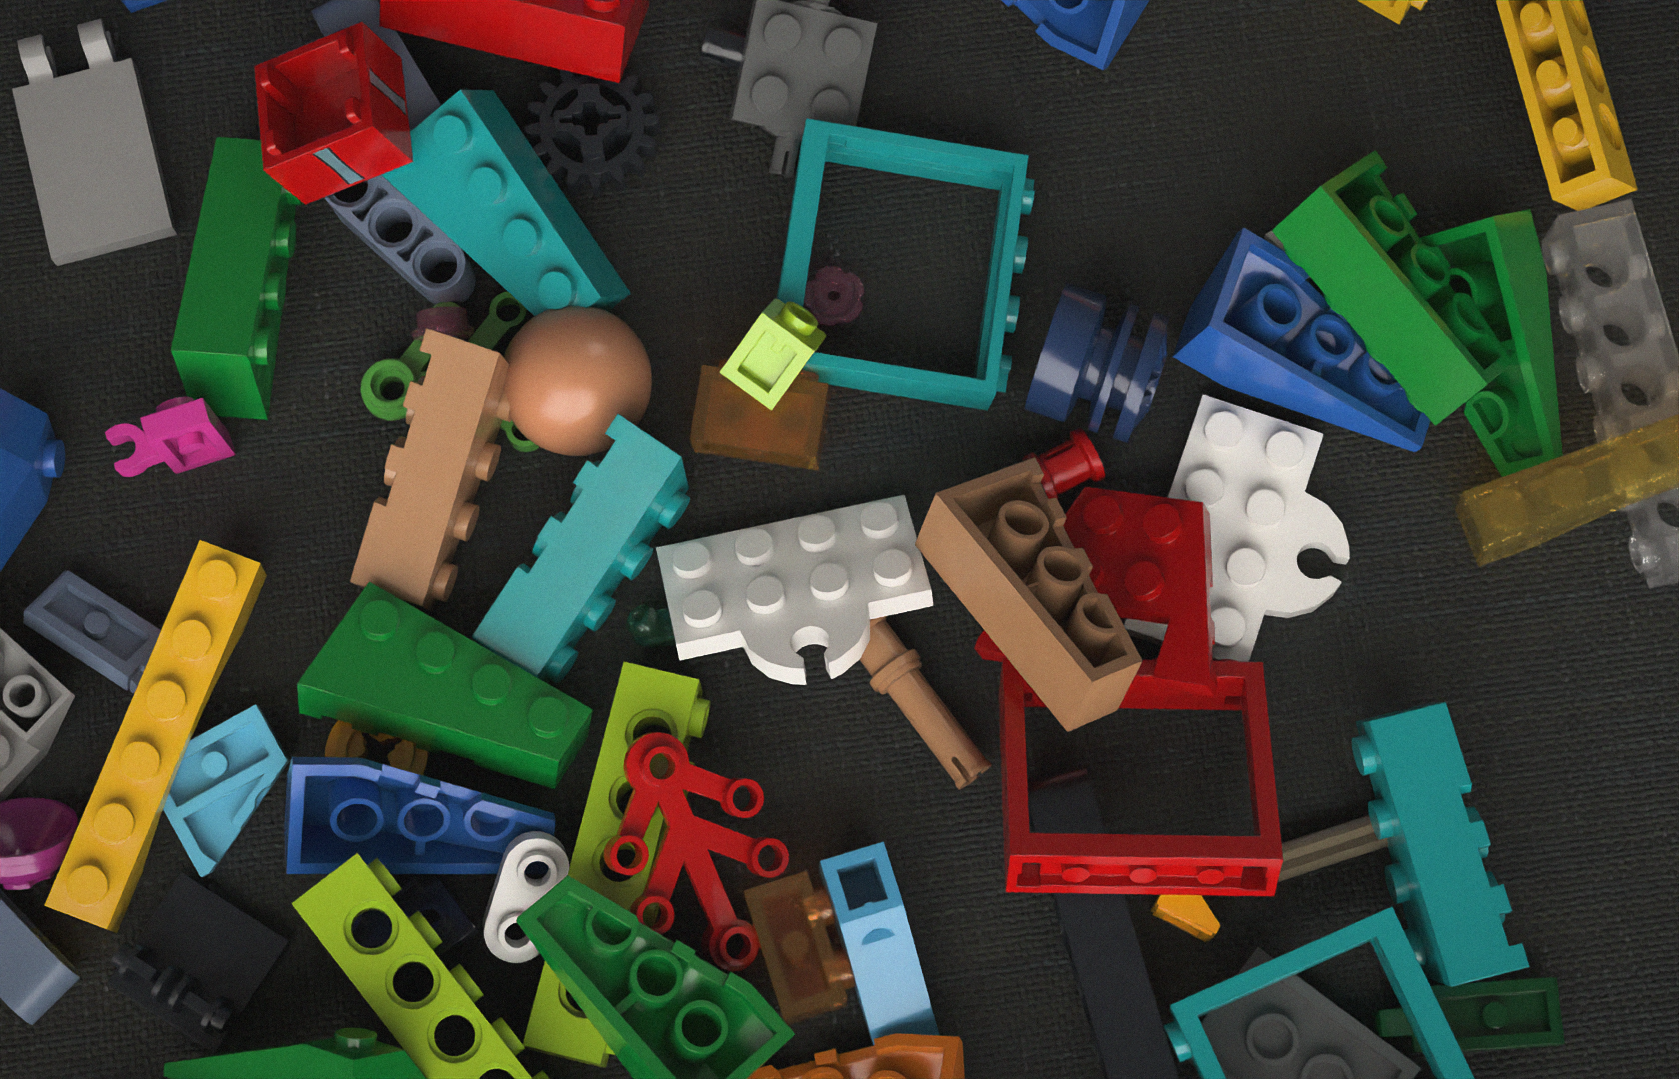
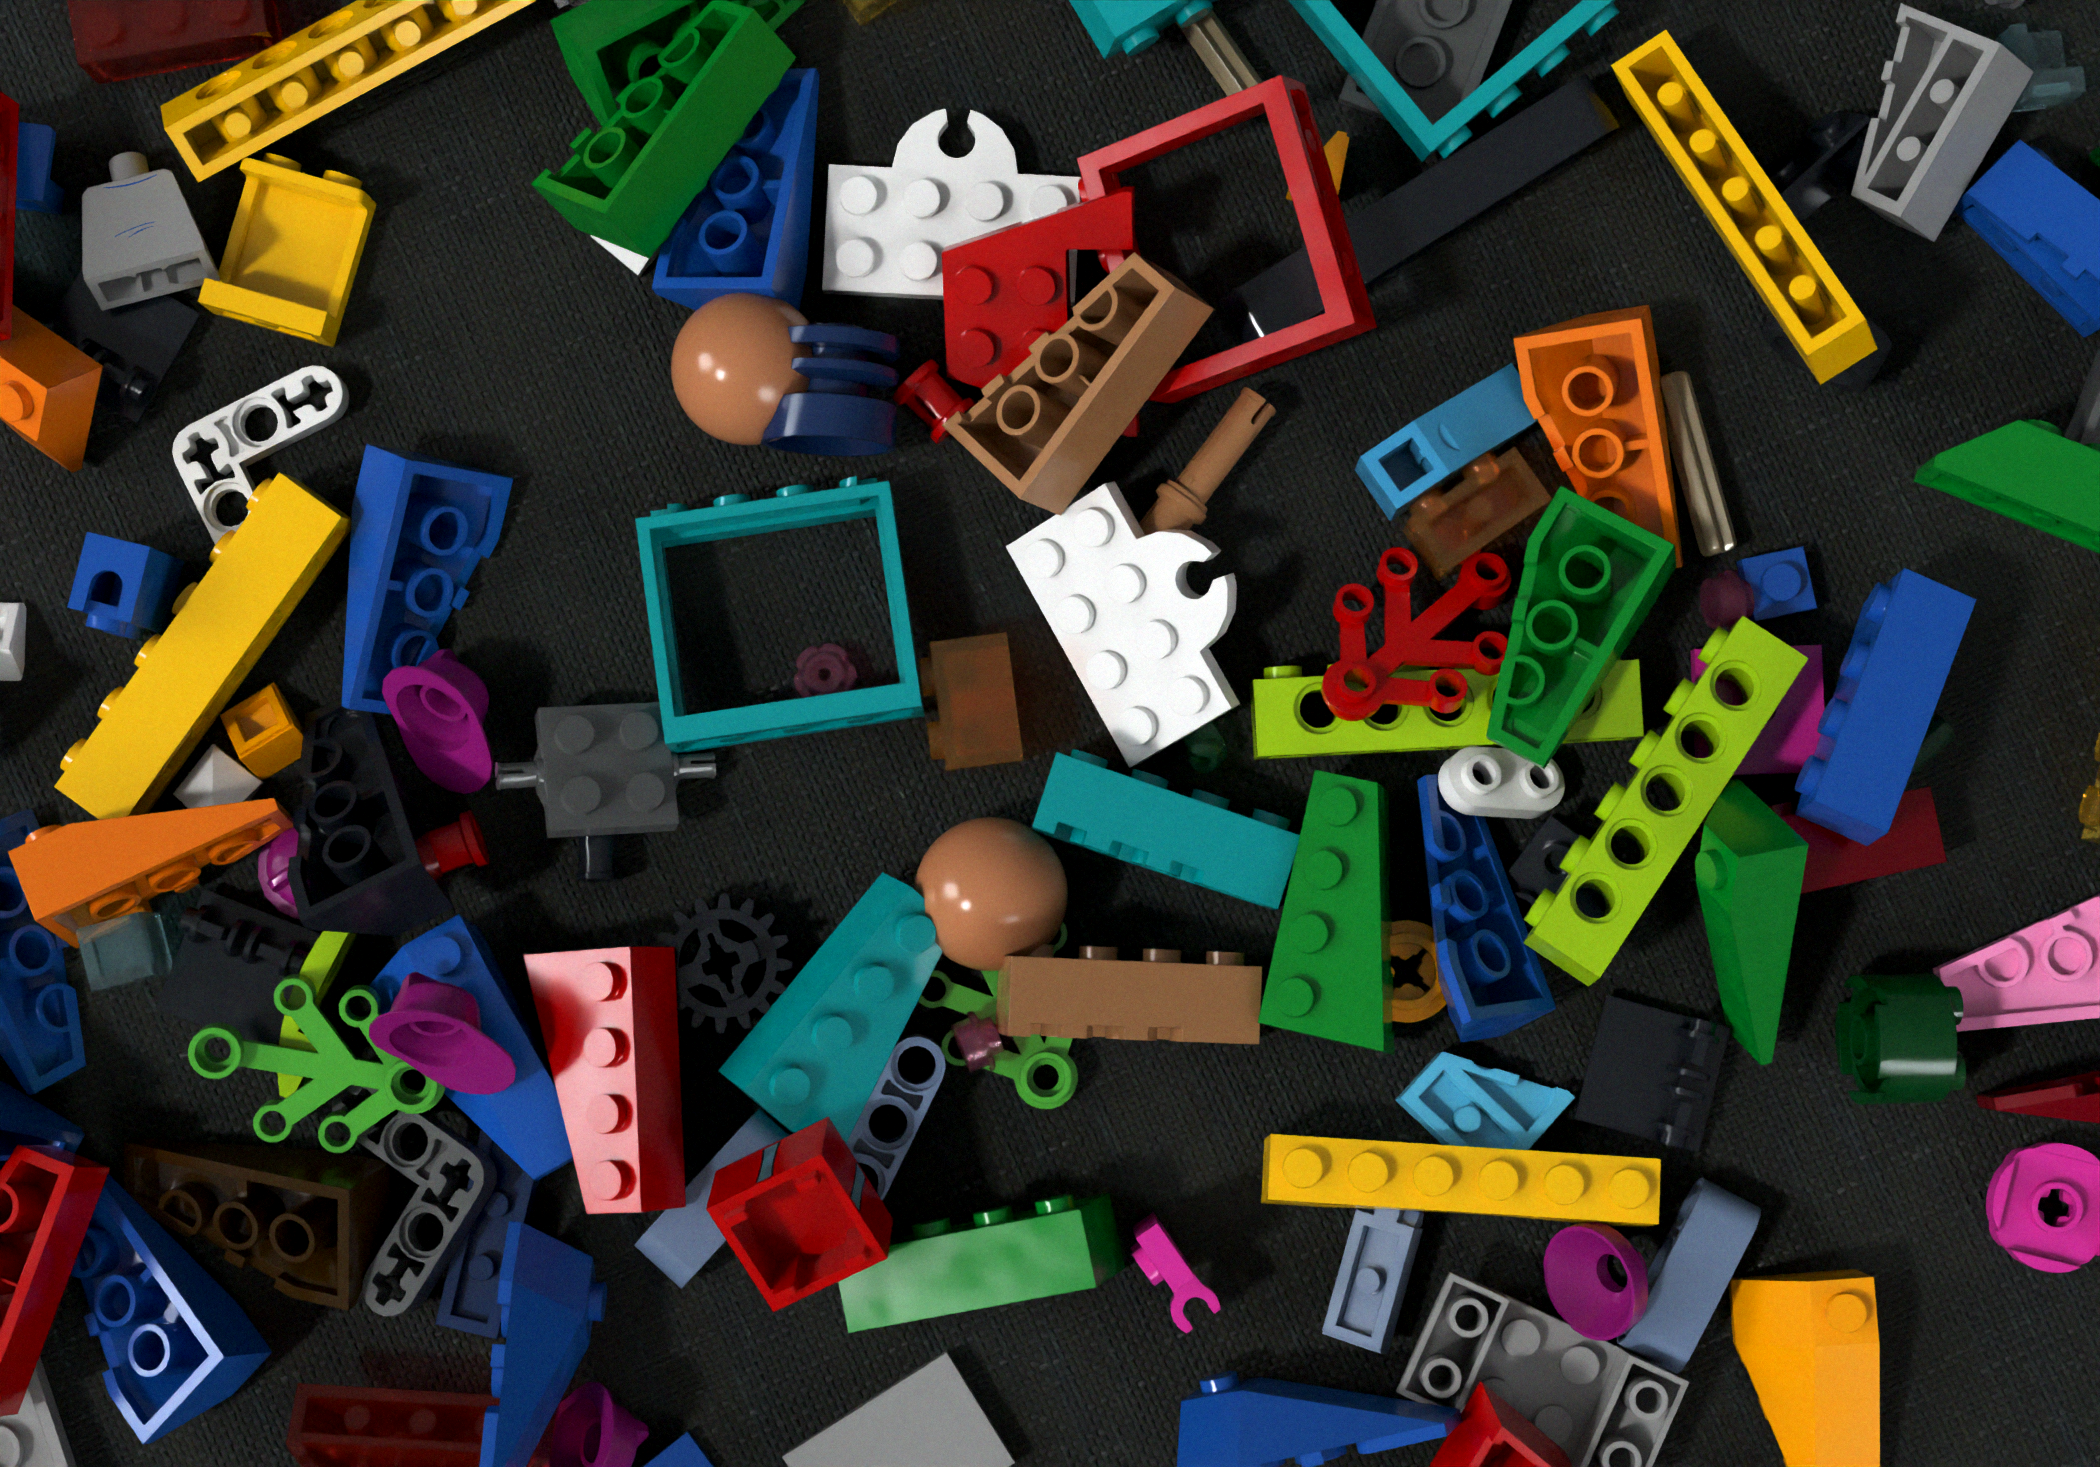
camera: 110 degrees left, 10 degrees up
(774, 351) = (920, 697): bracket -> none
(1150, 278) = (737, 364): none -> nougat piece

